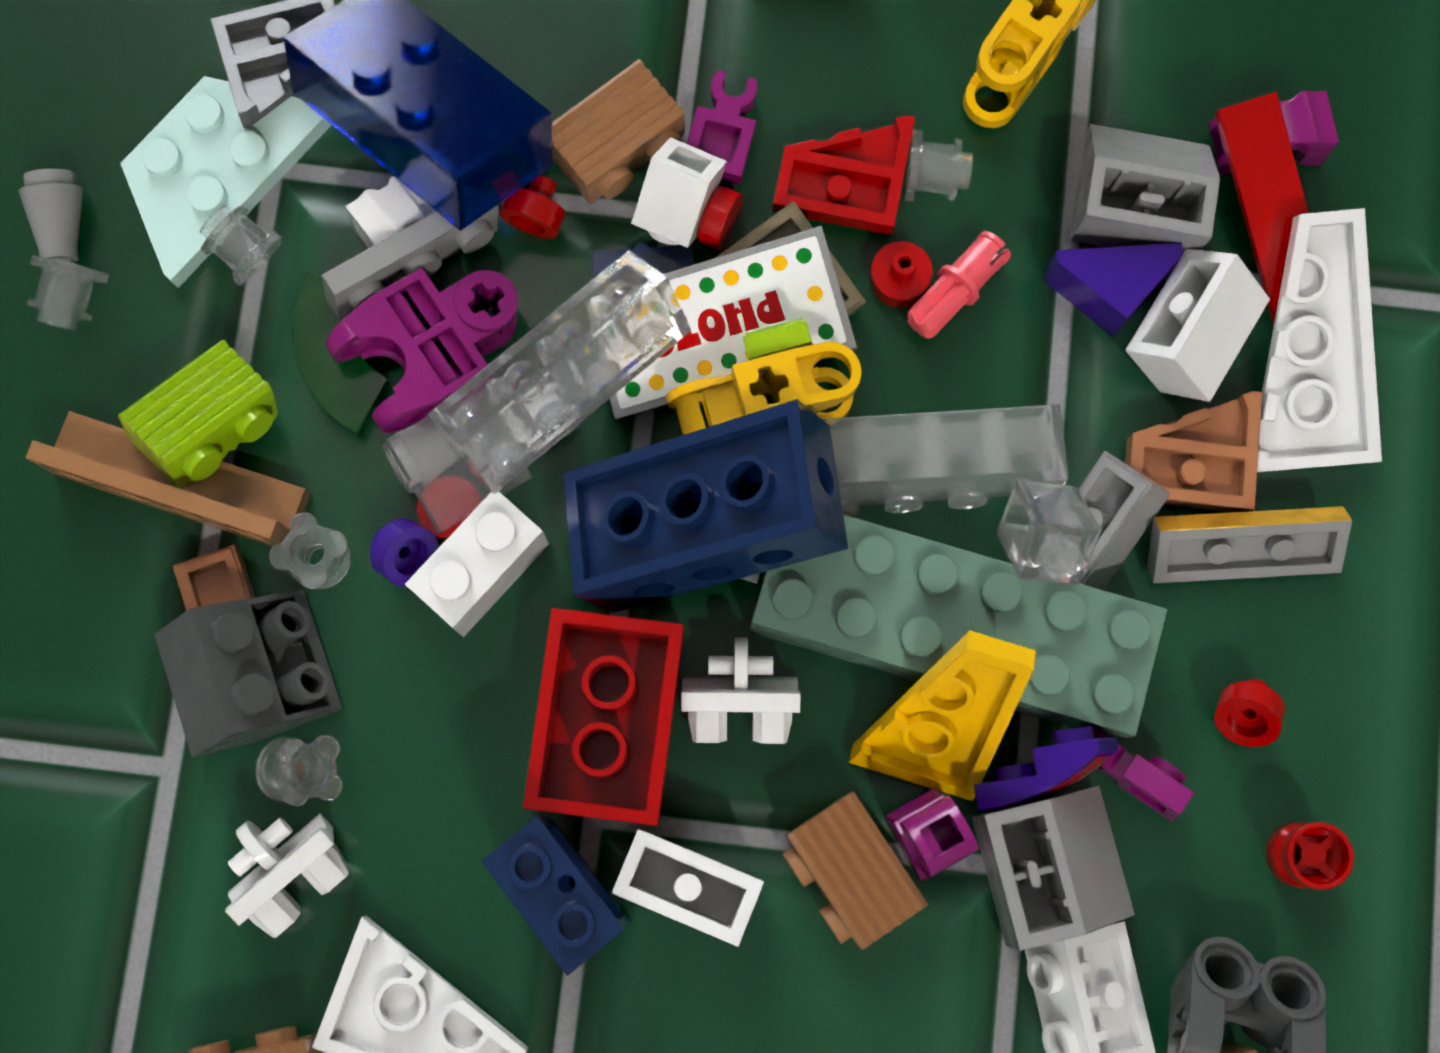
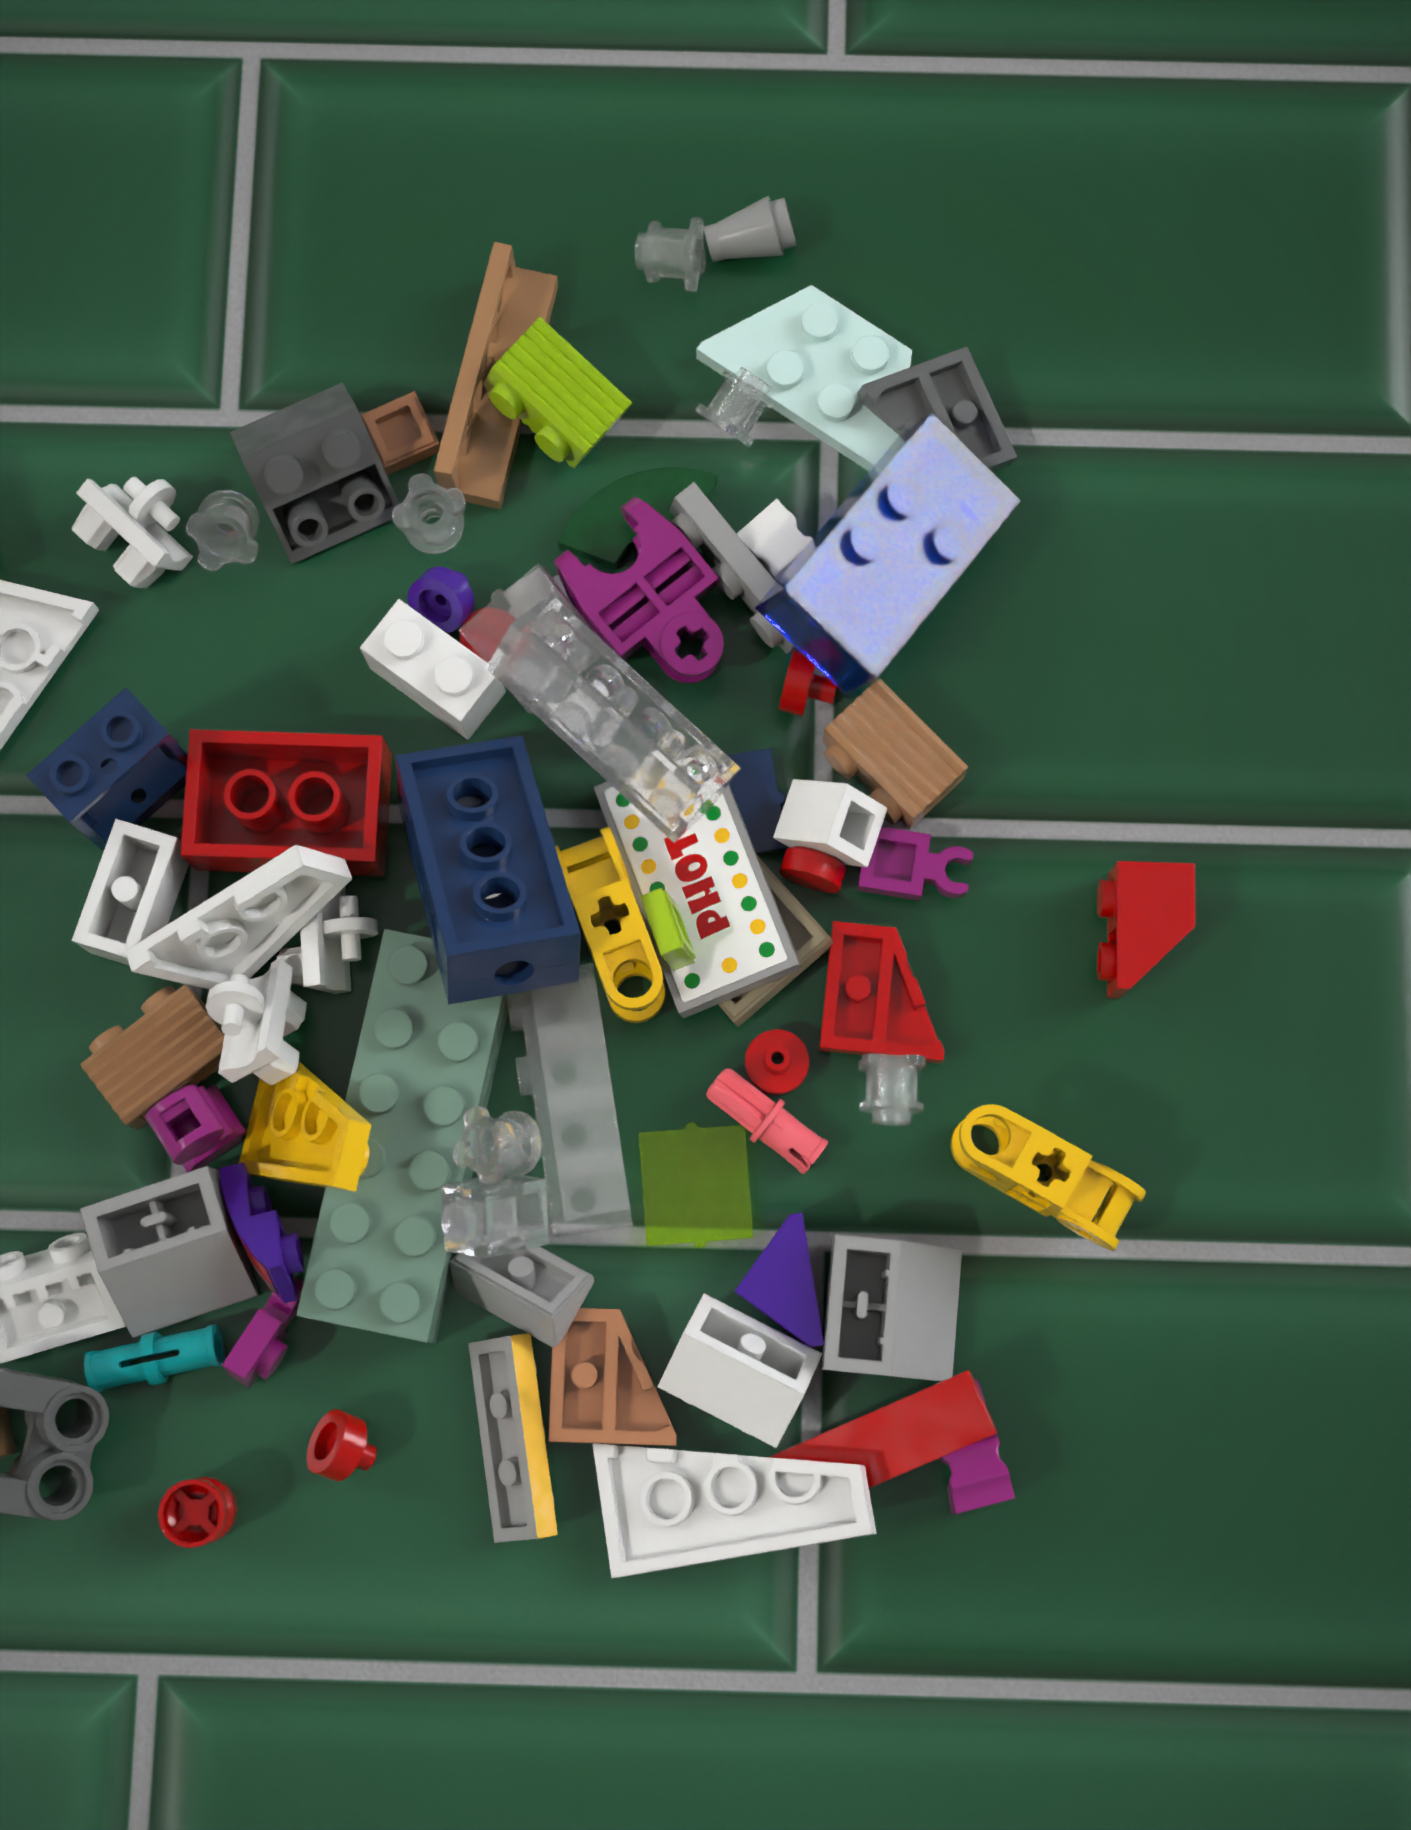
camera: 90 degrees right, 0 degrees up
(735, 763) = (243, 922): none -> white wing
(836, 760) = (254, 1021): none -> white hips
(983, 520) = (498, 1145): none -> clear brick
(1010, 359) = (695, 1185): none -> clear neon green piece
(1156, 894) = (113, 1368): none -> teal pin

